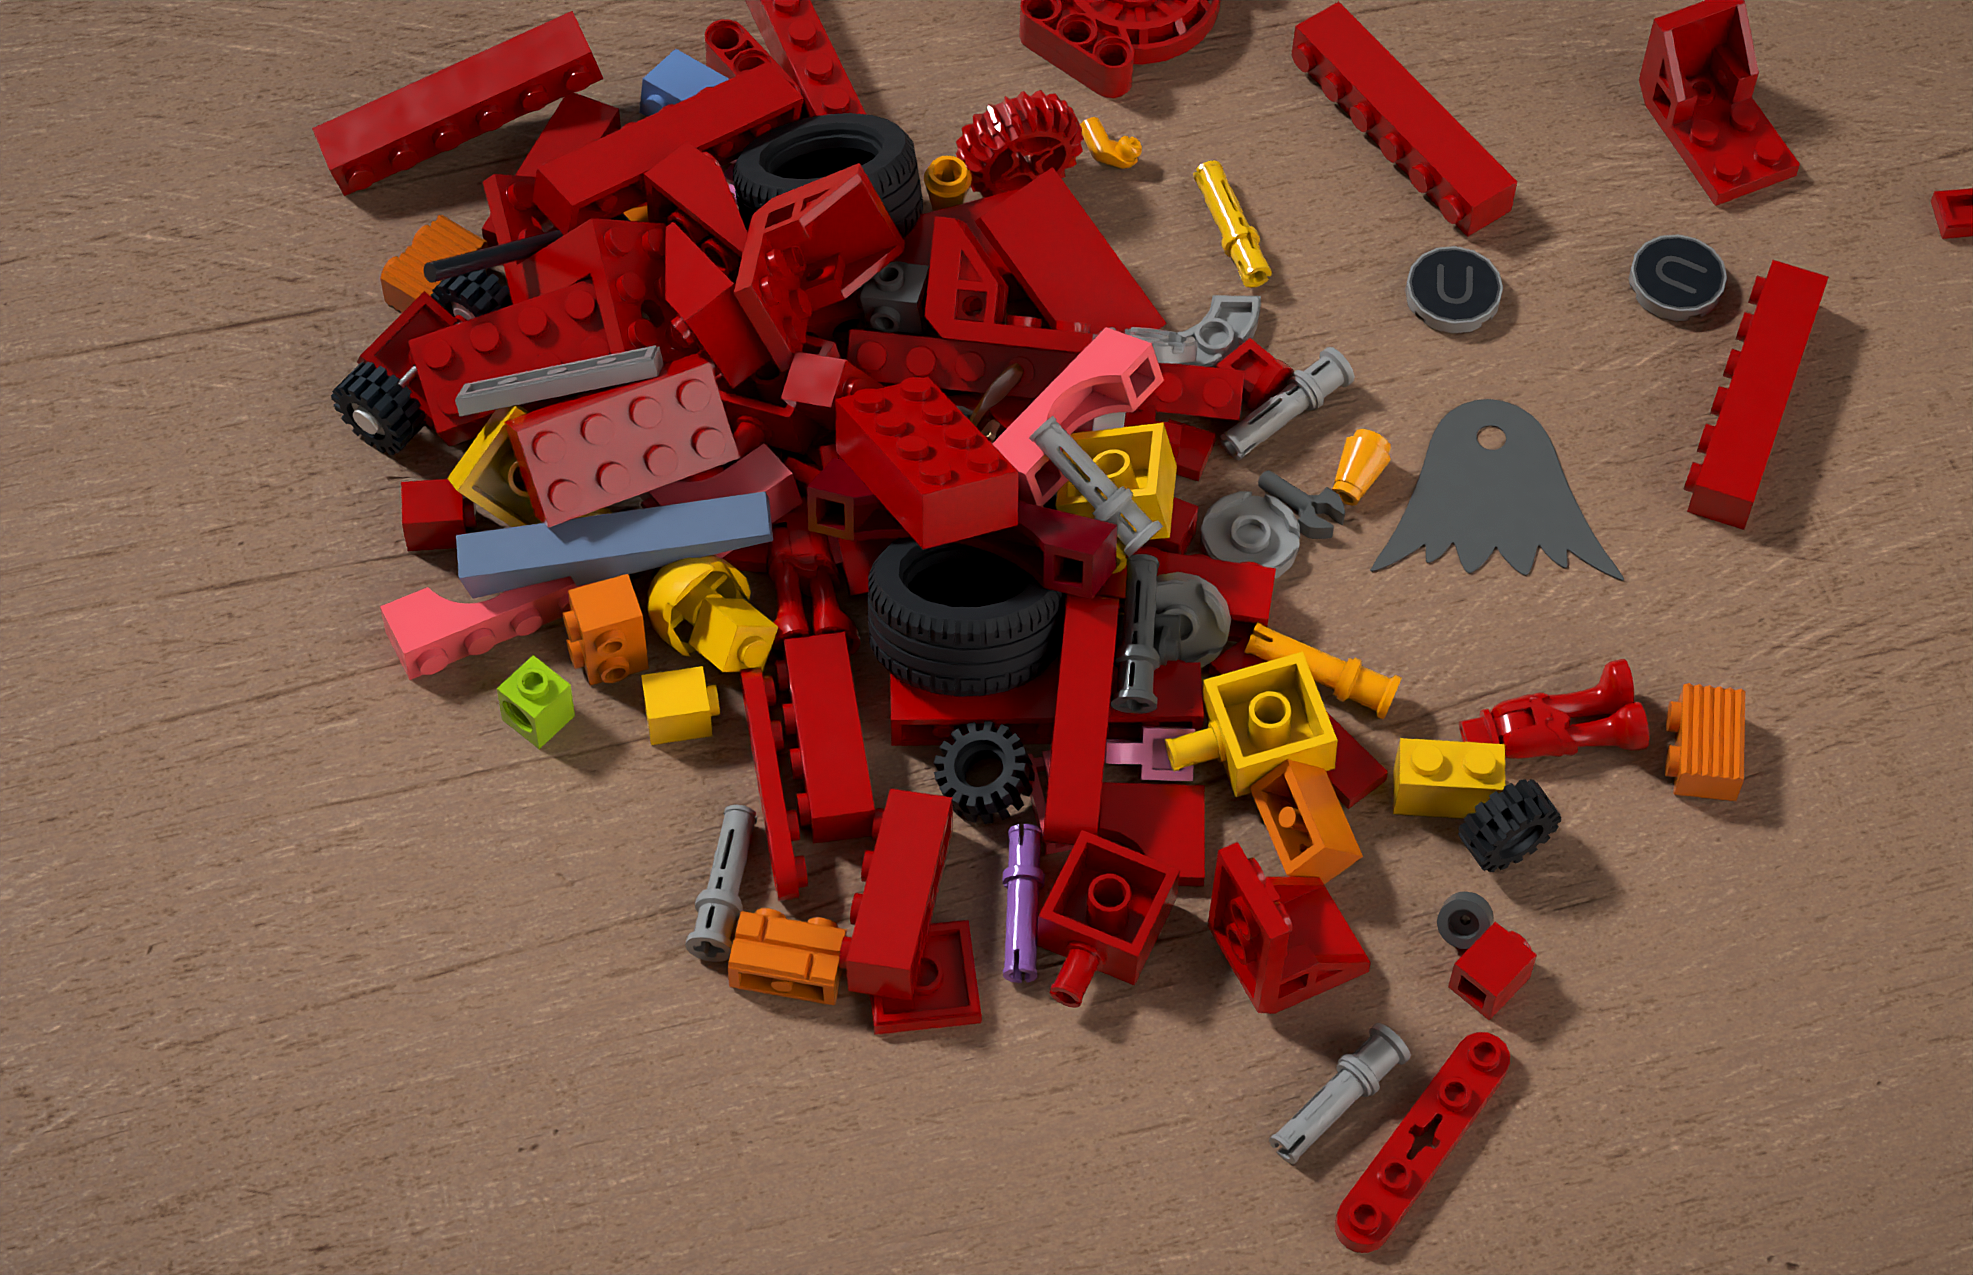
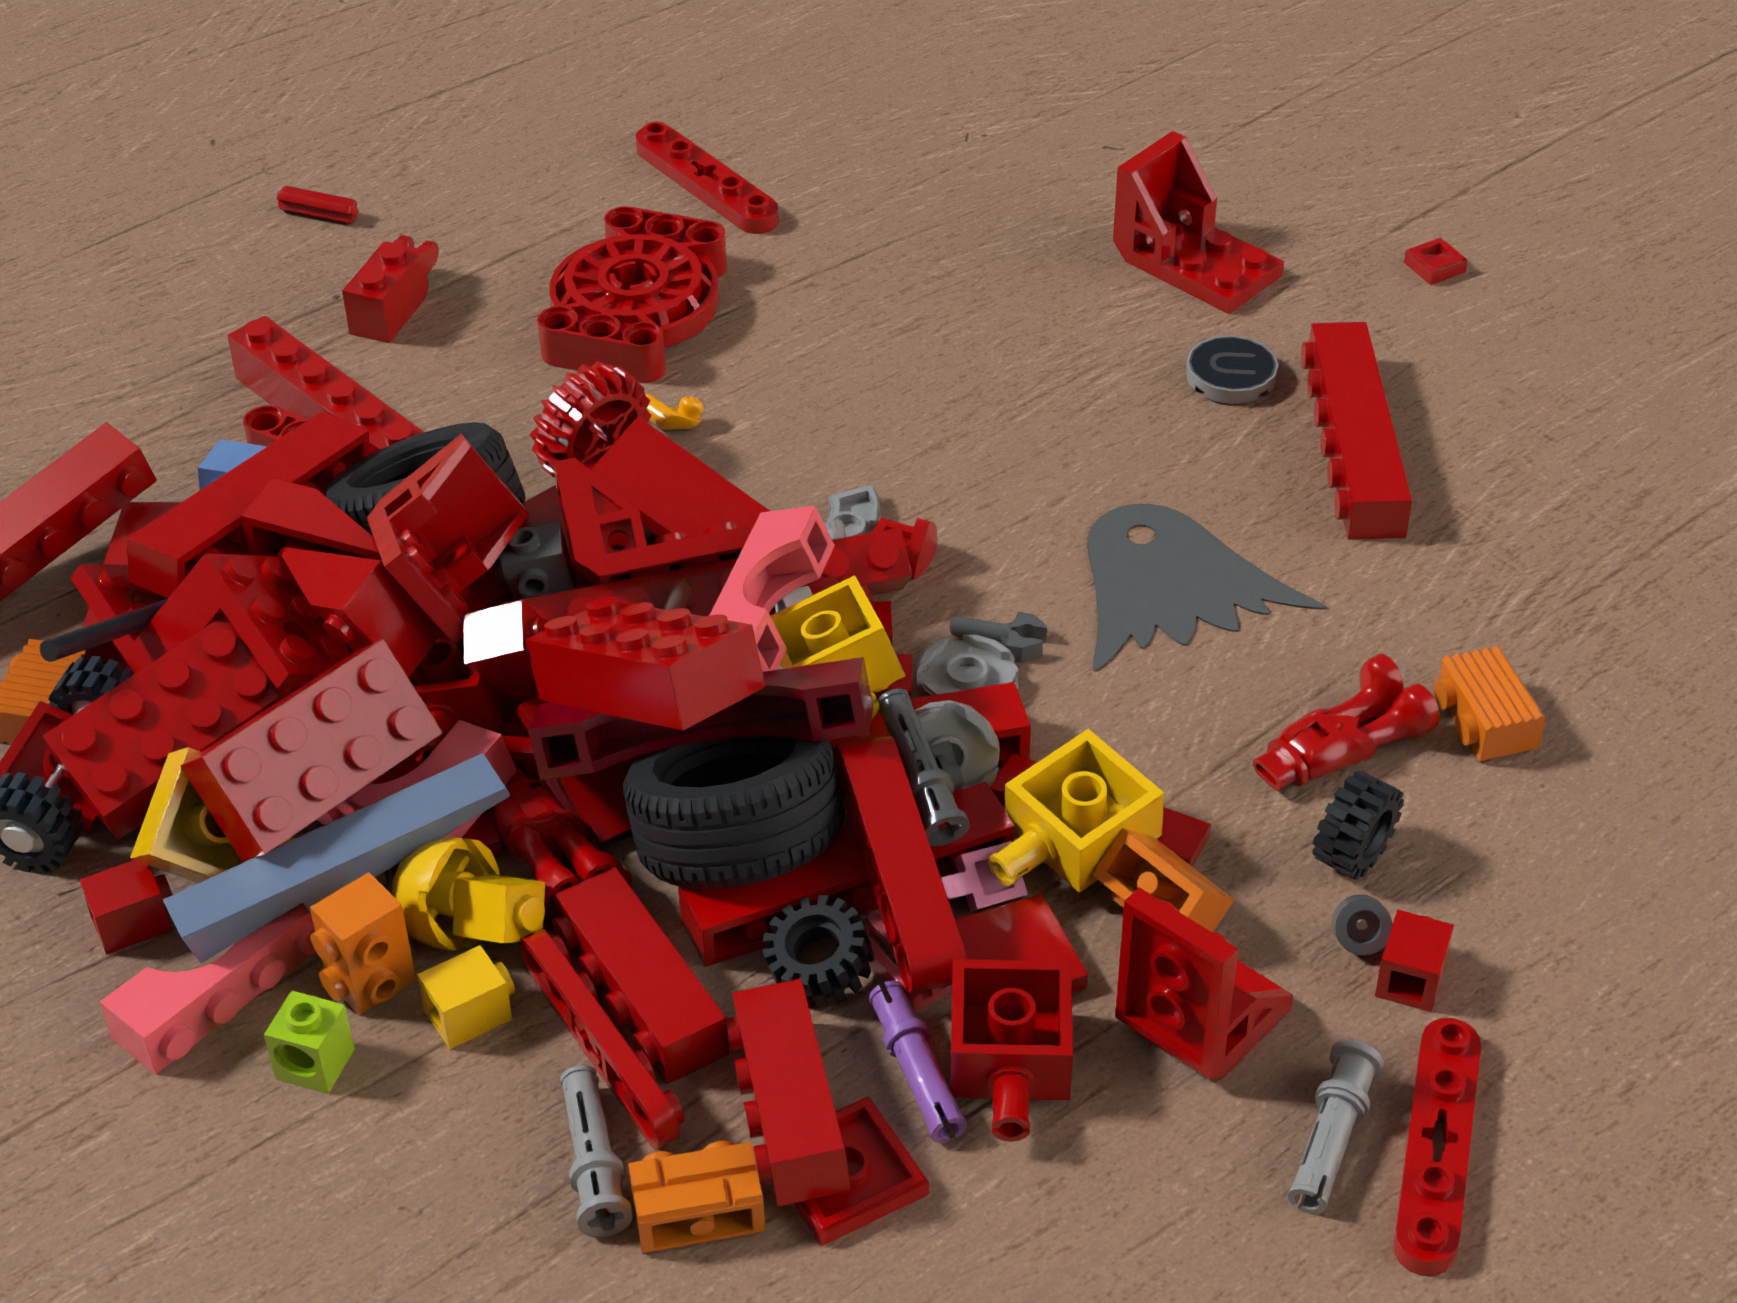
camera: 20 degrees left, 15 degrees down
(559, 380) = (223, 713): light grey tile -> none
(947, 182) = (535, 468): light orange cone -> none
(1049, 439) = (821, 633): light grey pin -> none
(1238, 238) = (828, 446): yellow pin -> none
(1303, 392) = (953, 544): light grey pin -> none
(1347, 679) = (1149, 757): light orange pin -> none
(1360, 464) = (1039, 582): light orange cone -> none
(1403, 119) = (928, 319): red brick -> none
(1445, 776) = (1271, 808): yellow brick -> none
(1454, 289) = (1043, 432): black tile -> none

